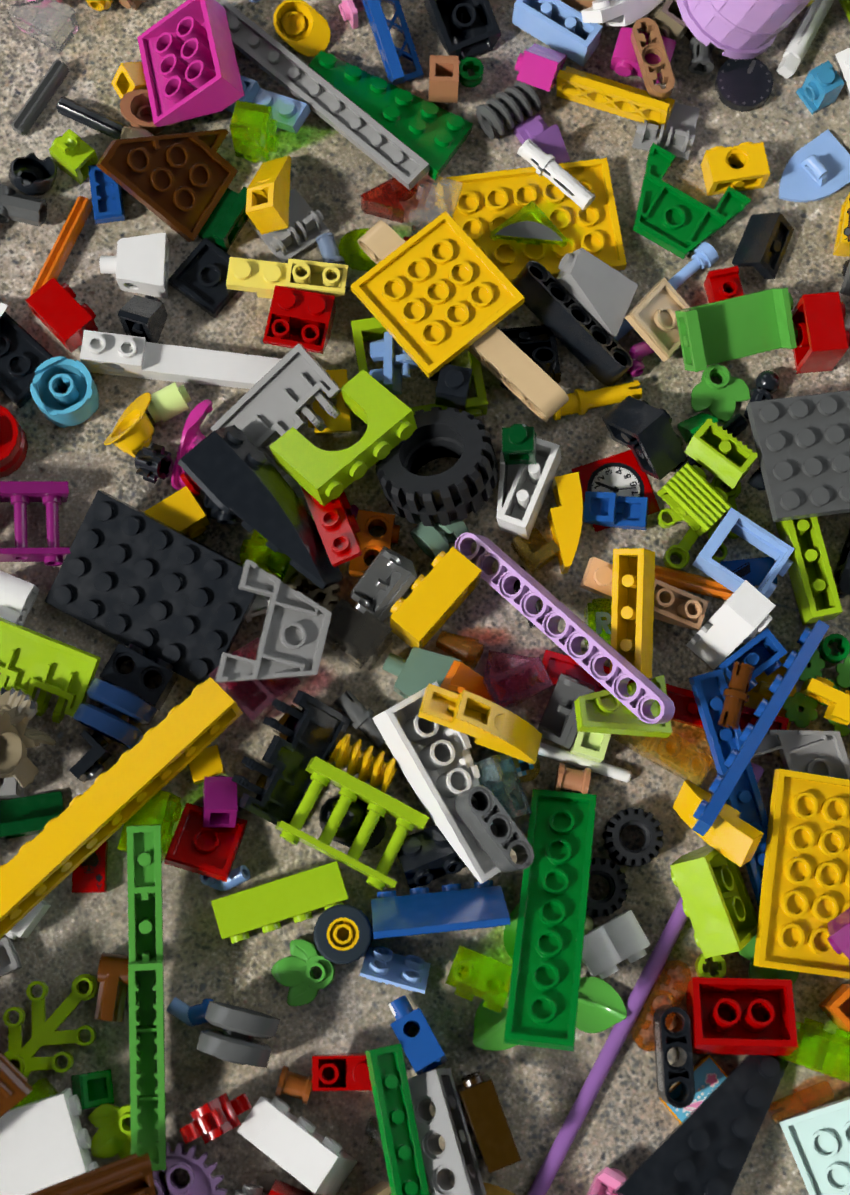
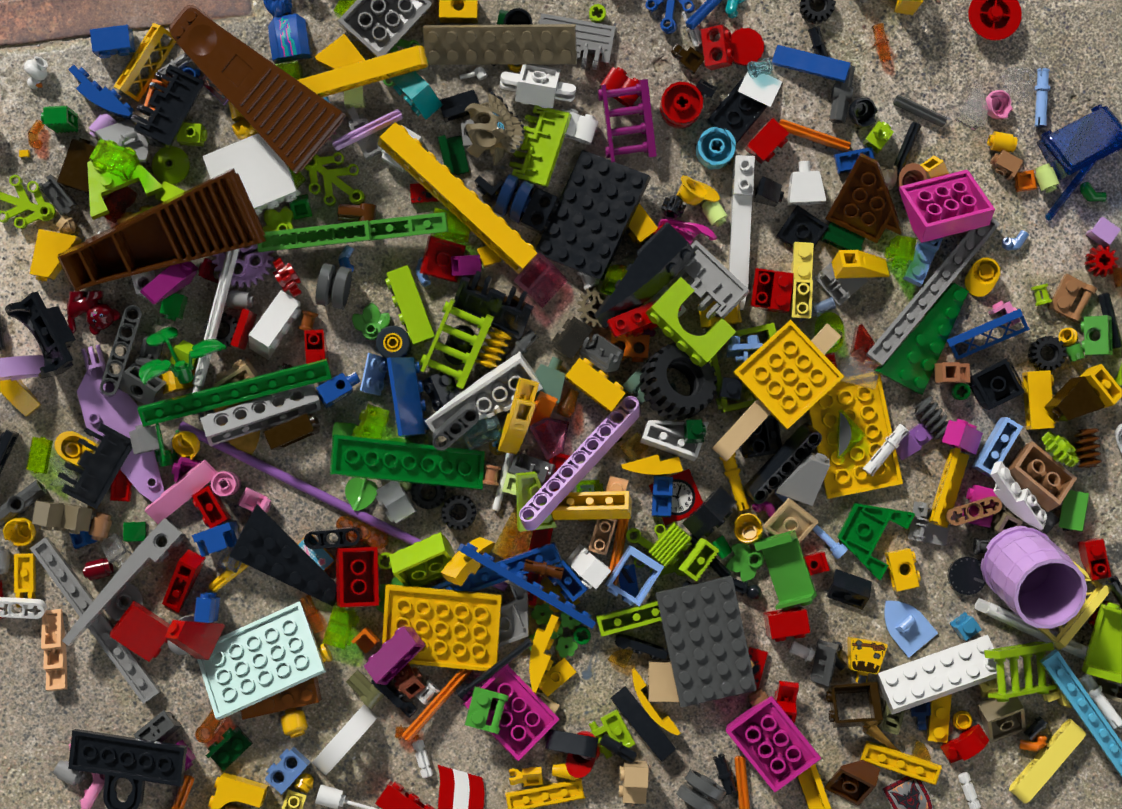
camera: 90 degrees right, 10 degrees up
(290, 636) = (566, 299): light grey wing -> none
(670, 381) = (748, 528): none -> yellow hair

